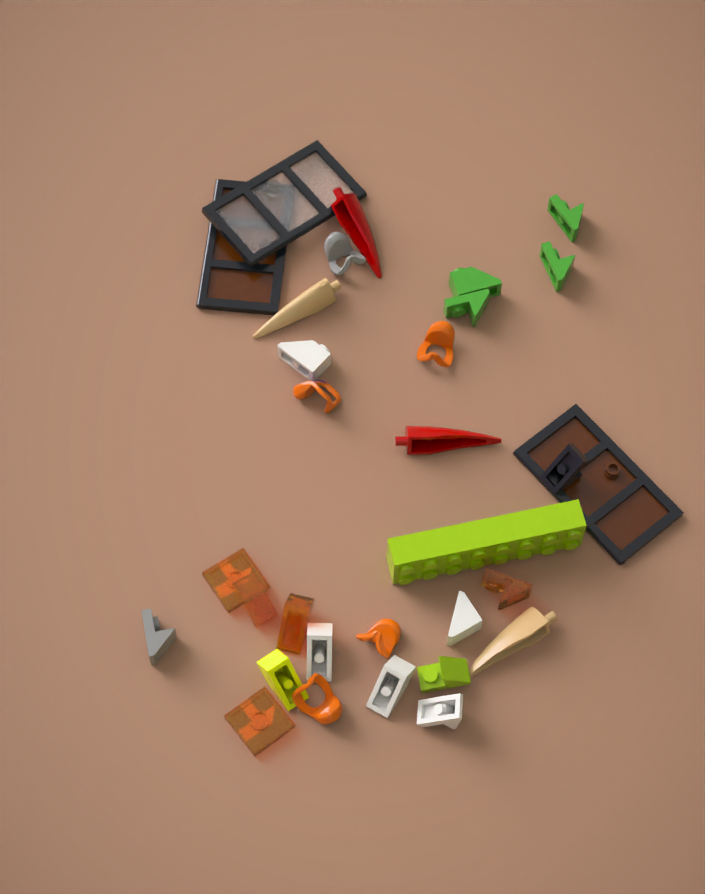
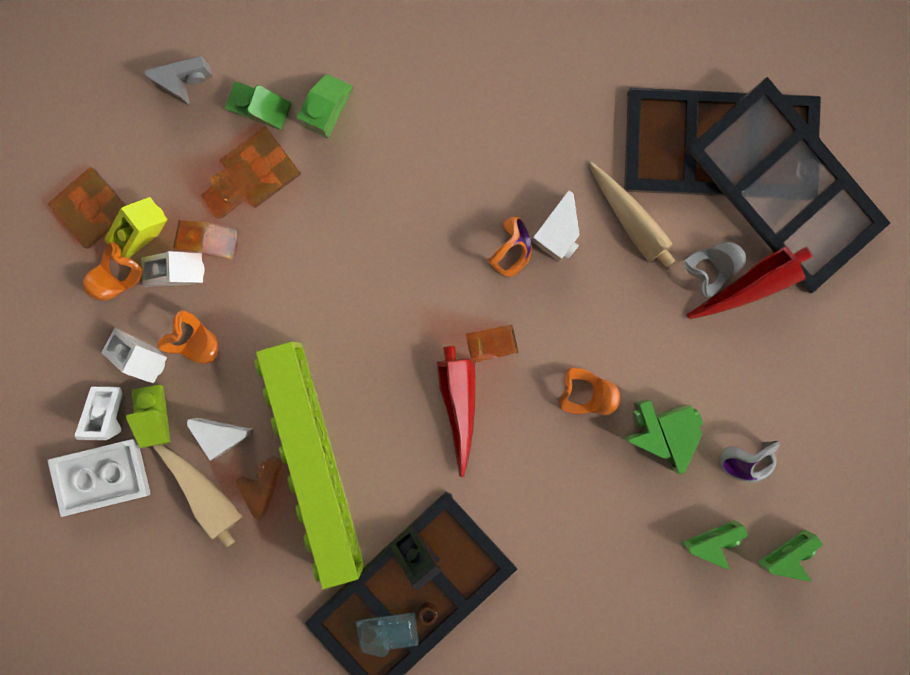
camera: 90 degrees right, 25 degrees up
(183, 579) = (258, 105): none -> bright green slope
(190, 524) = (324, 105): none -> bright green slope
(394, 413) = (491, 343): none -> clear orange slope
(494, 245) = (740, 463): none -> light grey piece
(495, 720) = (99, 477): none -> white plate
(627, 498) = (387, 633): none -> clear light blue slope

